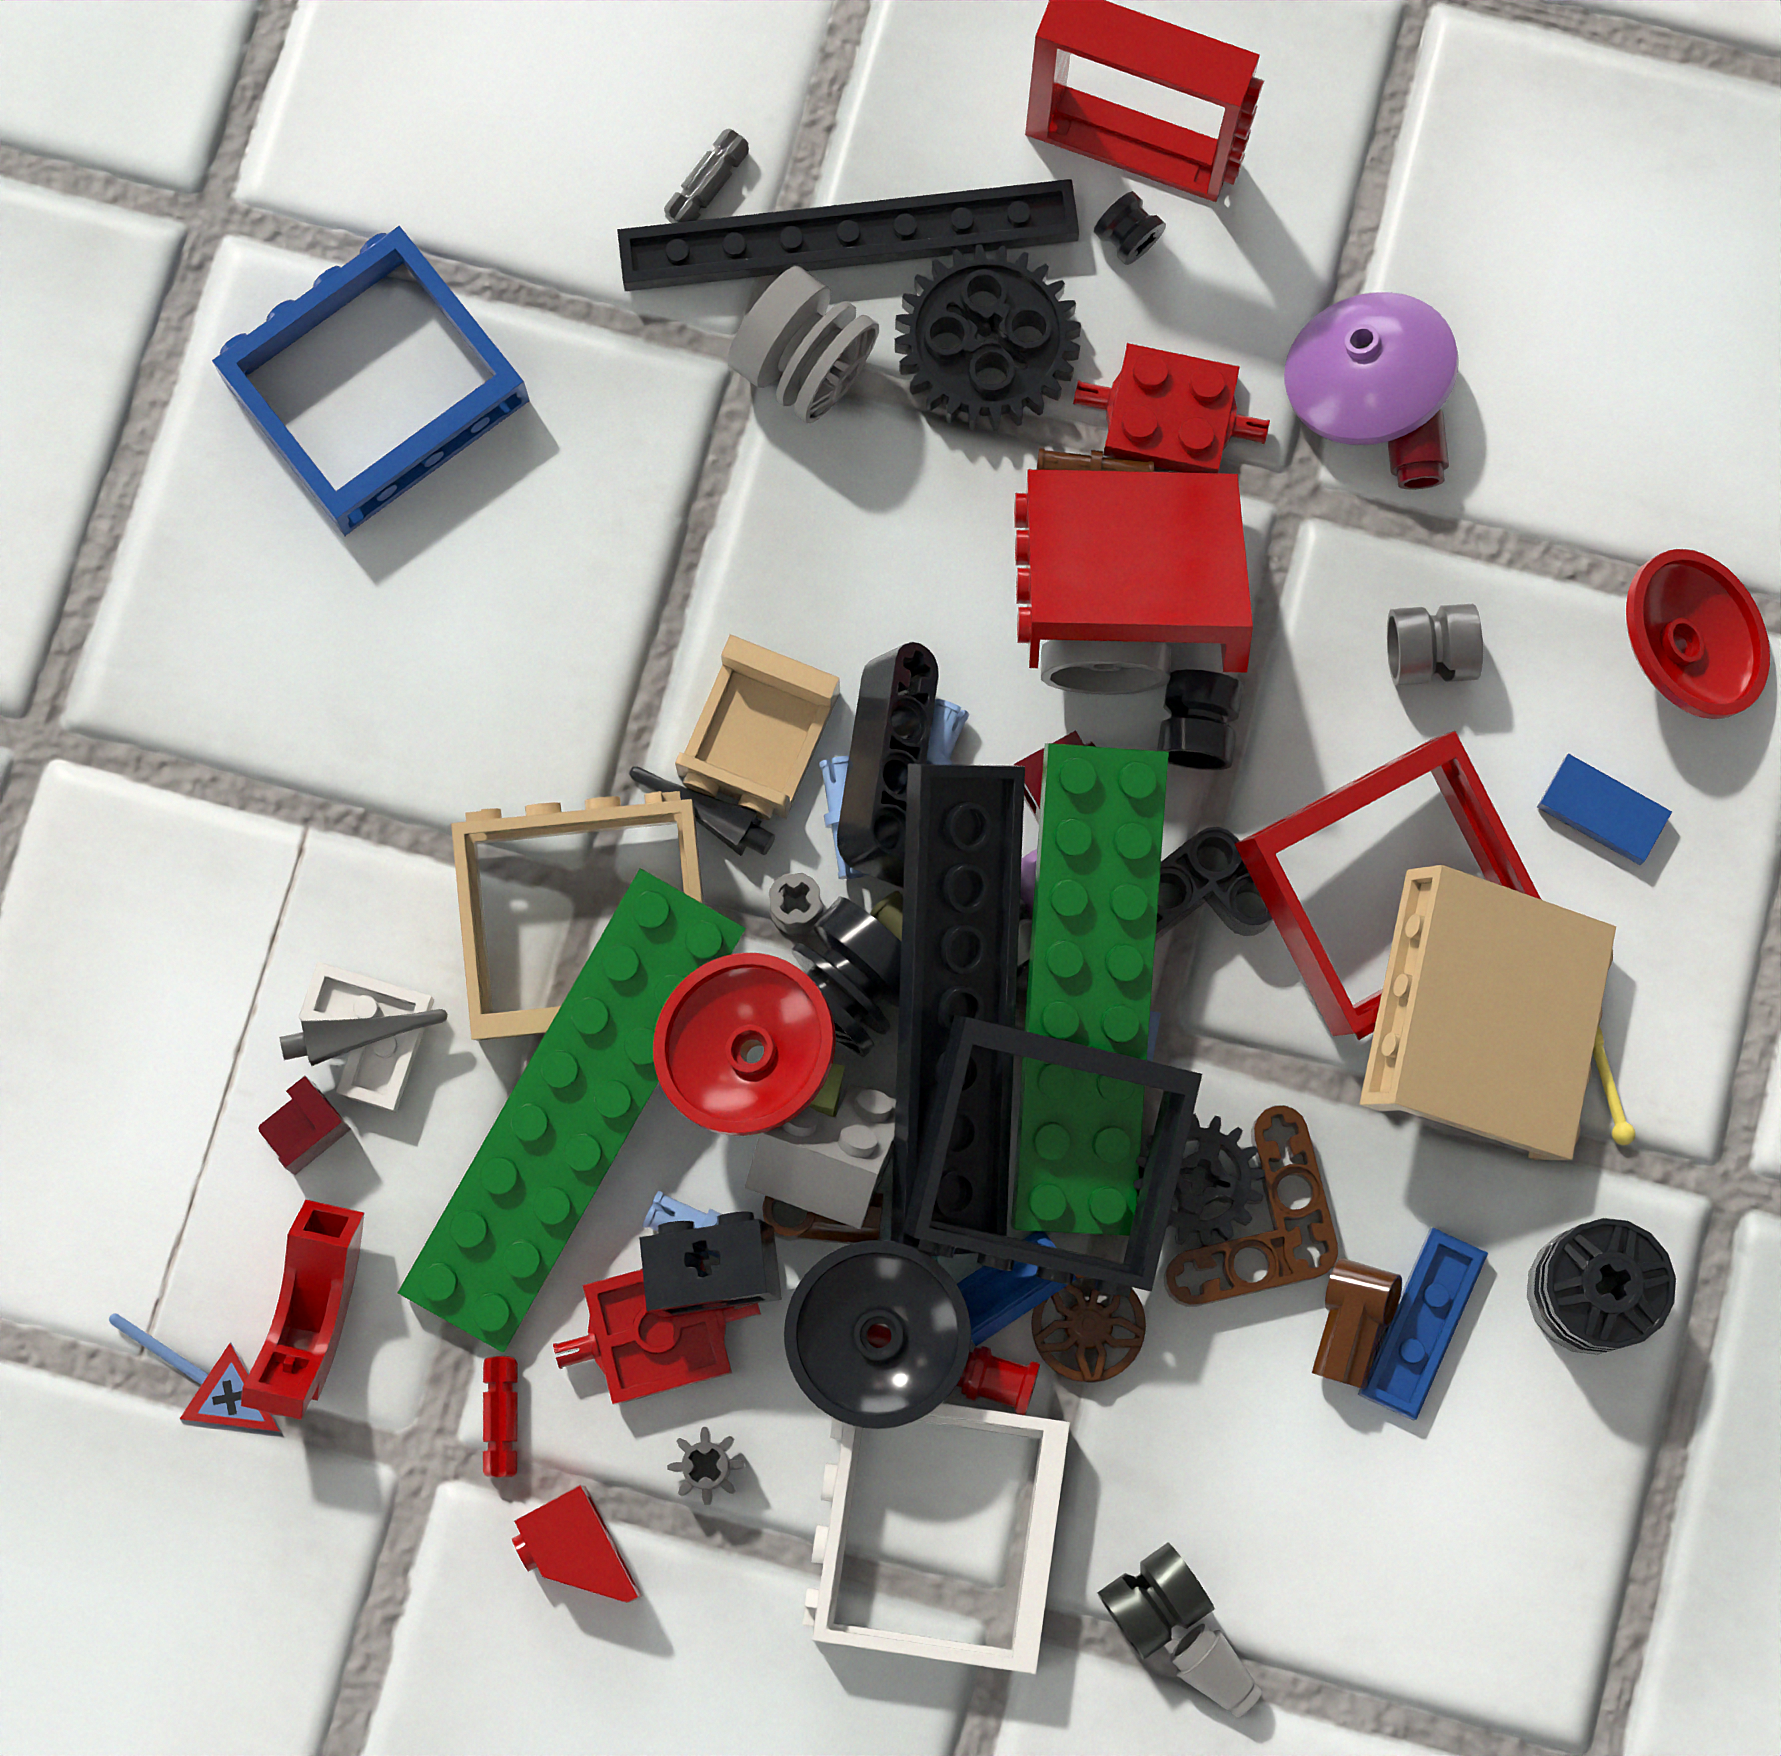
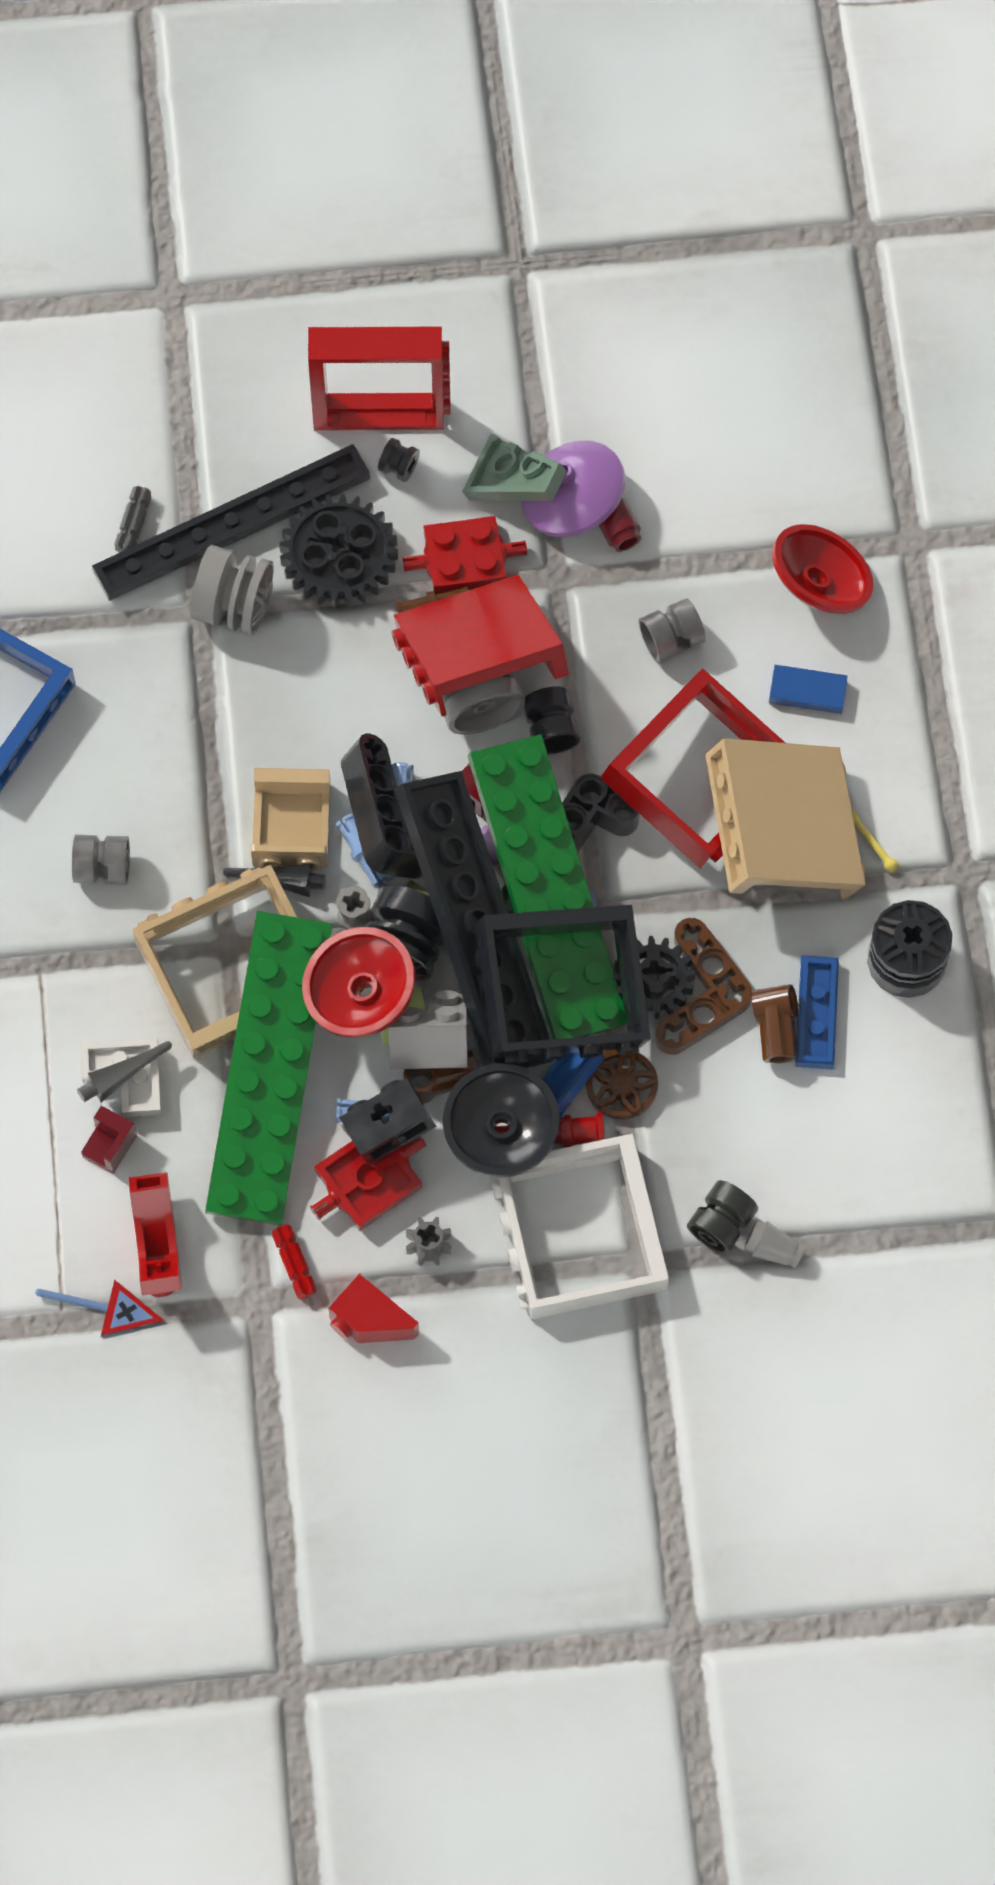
camera: 20 degrees left, 10 degrees down
(451, 688) = (100, 859): none -> flat silver wheel
(1289, 315) = (513, 474): none -> sand green wing

